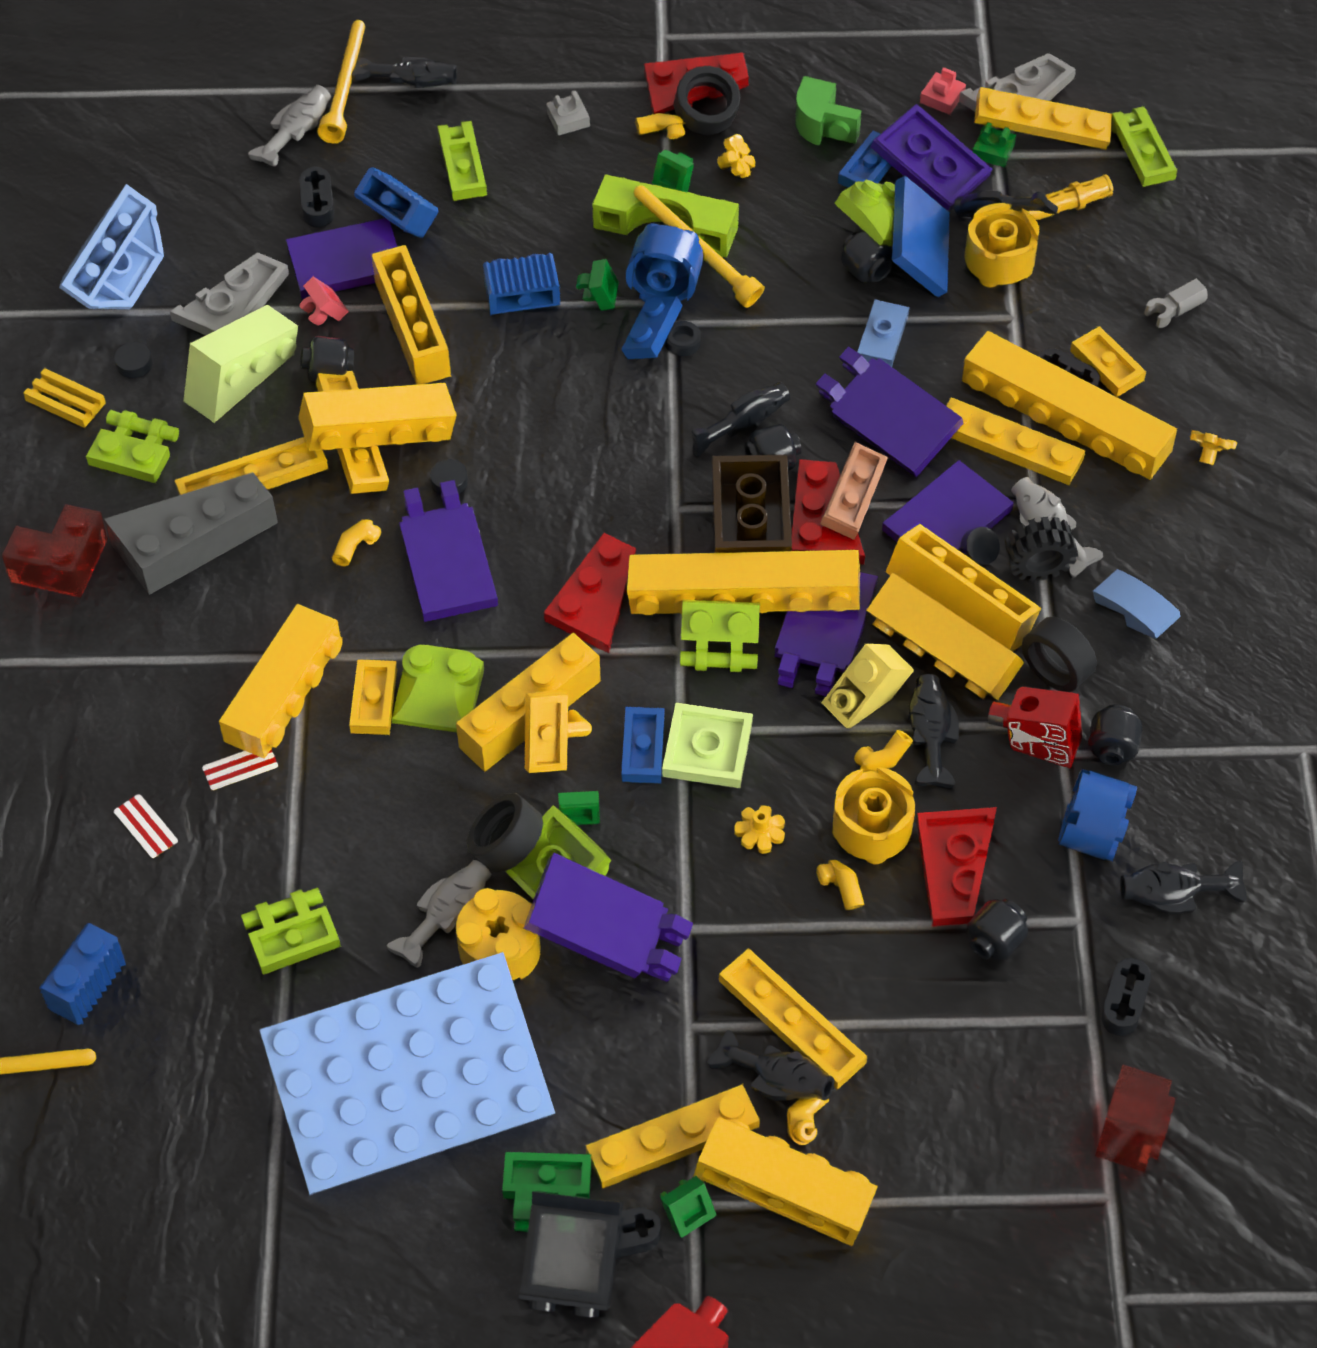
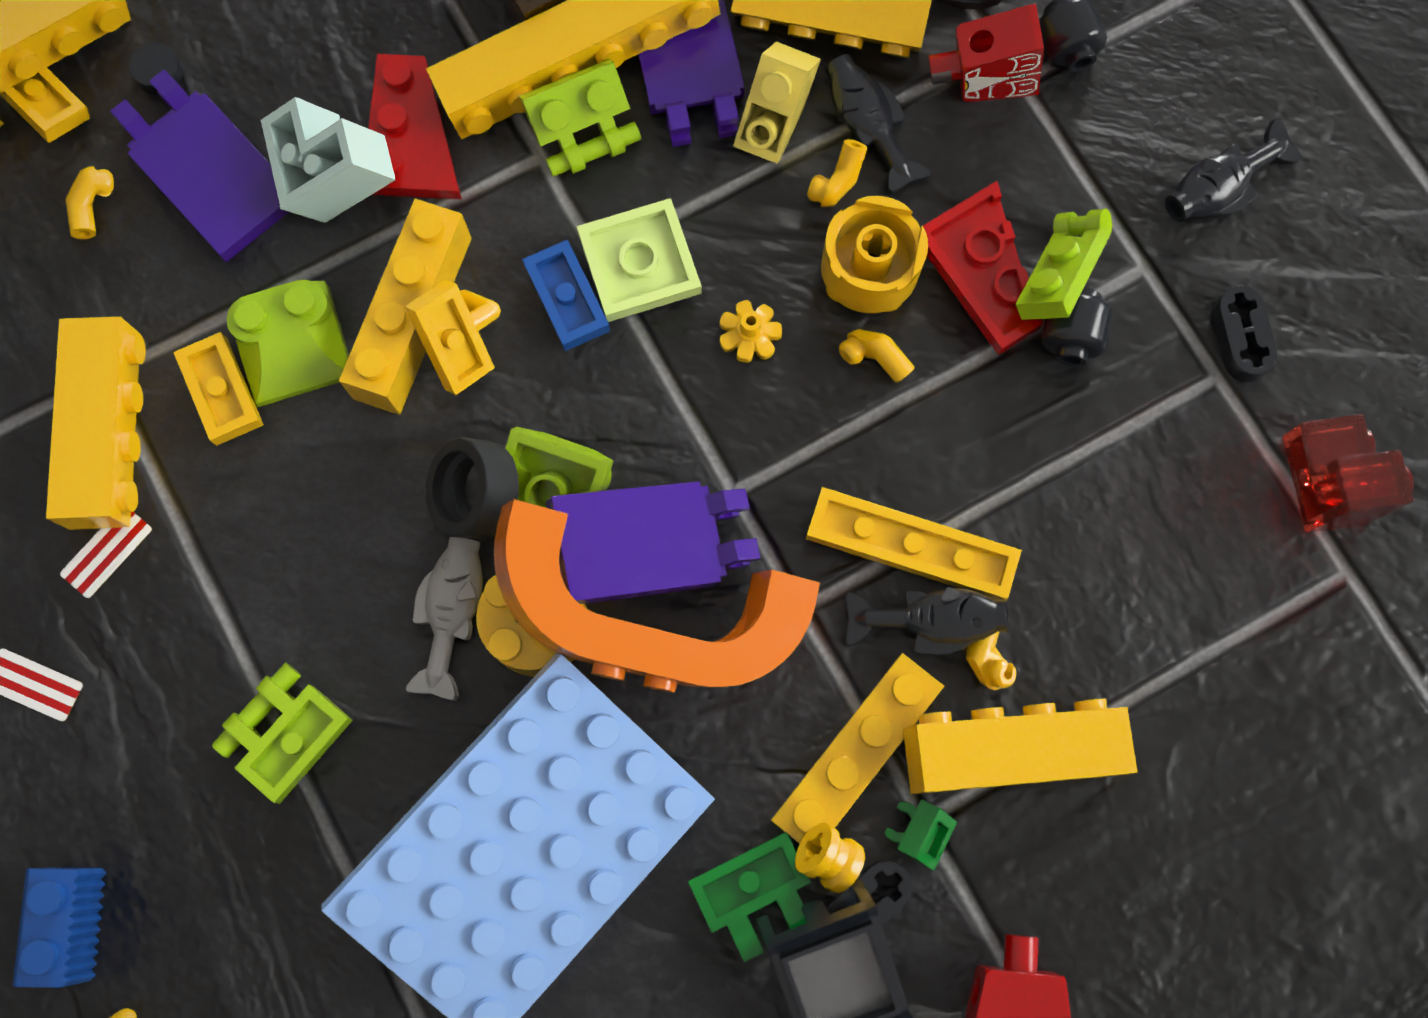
camera: 30 degrees left, 20 degrees up
(526, 583) = (323, 160): none -> light aqua brick
(556, 978) = (534, 591): none -> orange arch
(580, 807) = (538, 409): green tile -> none
(610, 1179) = (829, 858): none -> yellow wheel
(1011, 881) = (1065, 265): none -> lime plate
(1096, 815) = (1113, 138): blue brick -> none

